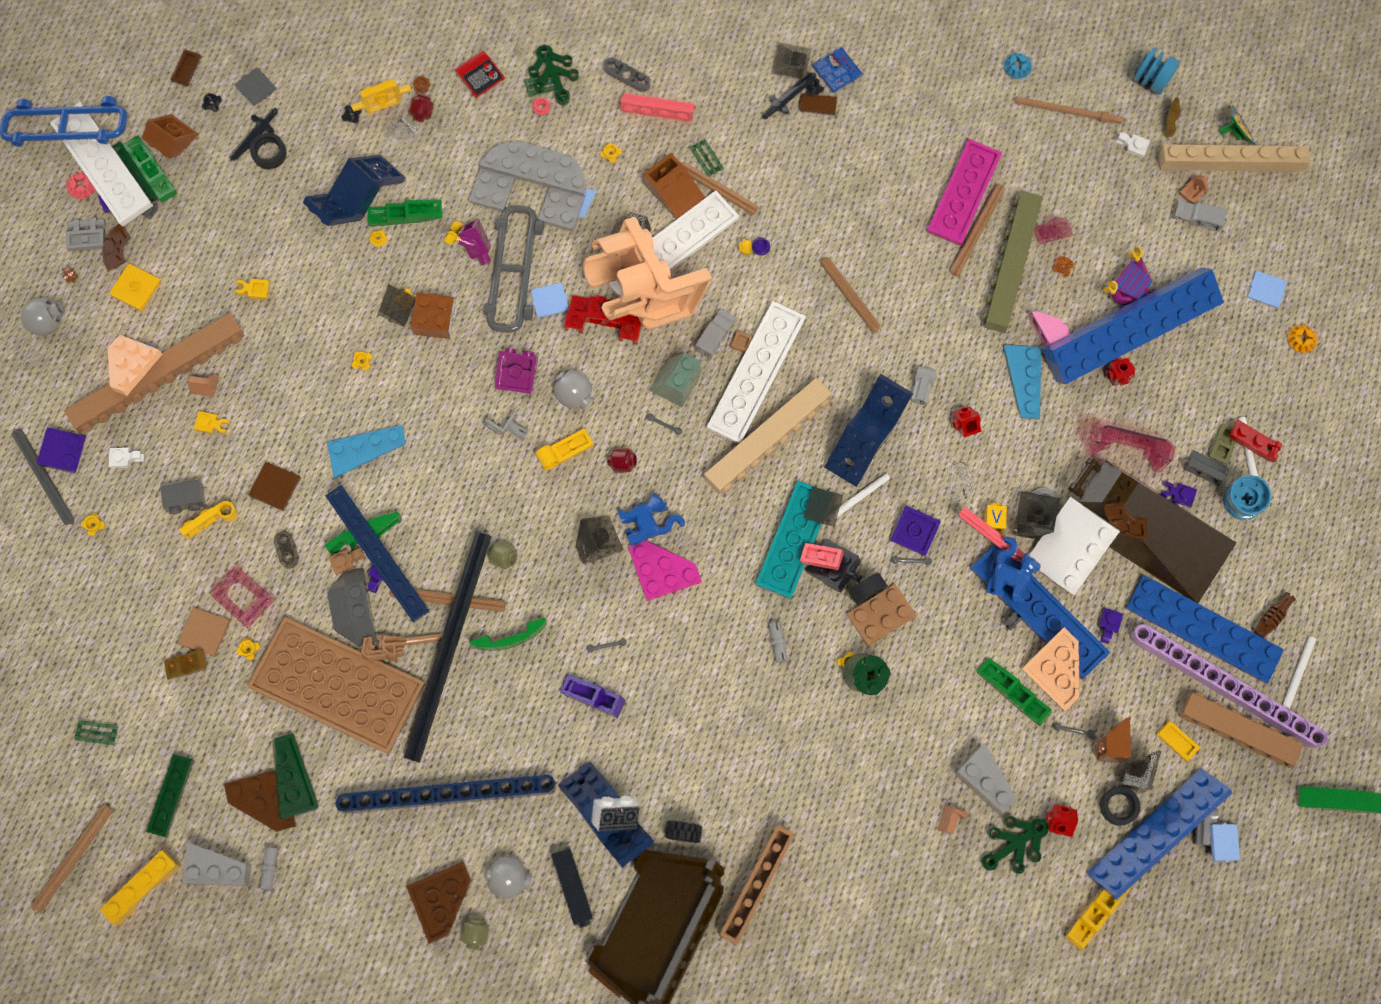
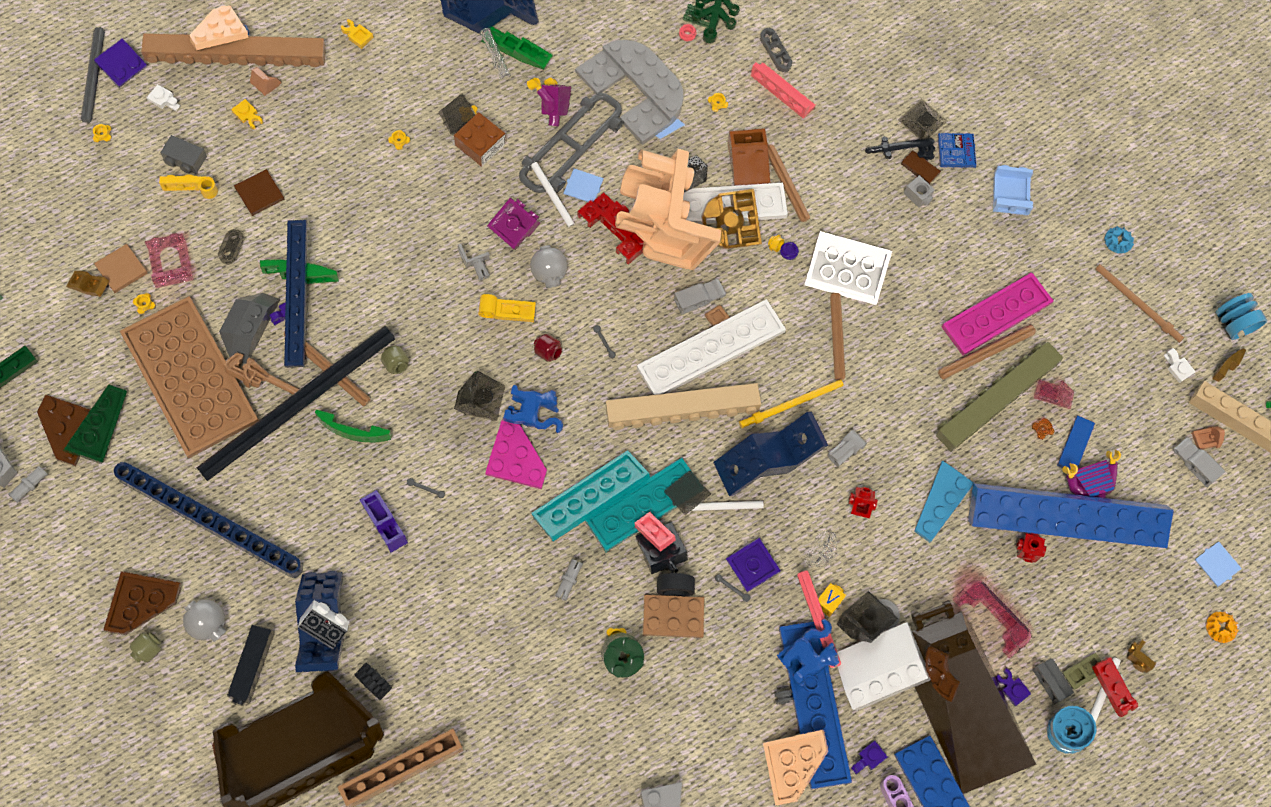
camera: 30 degrees right, 5 degrees down
(344, 561) = (268, 284): medium nougat plate -> none
(354, 451) = (342, 205): dark azure wing -> none
(371, 218) = (498, 59): none -> clear pin
(378, 242) = (481, 58): yellow plate -> none
(534, 326) = (552, 194): none -> white bar
(677, 378) = (640, 312): sand green slope -> none
(691, 251) = (725, 216): none -> pearl gold connector
(713, 170) = (794, 167): clear green tile -> none
(747, 561) = (590, 495): none -> teal plate
(819, 229) = (848, 267): none -> white slope
(832, 120) = (922, 186): none -> light grey brick
(834, 405) = (759, 417): none -> yellow bar
(905, 77) = (1012, 190): none -> light blue panel
(1014, 691) = (742, 759): green slope -> none
(1048, 327) = (992, 470): bright pink slope -> none
(1097, 261) = (1076, 442): none -> blue tile
(1261, 407) = (1140, 660): none -> pearl gold bracket

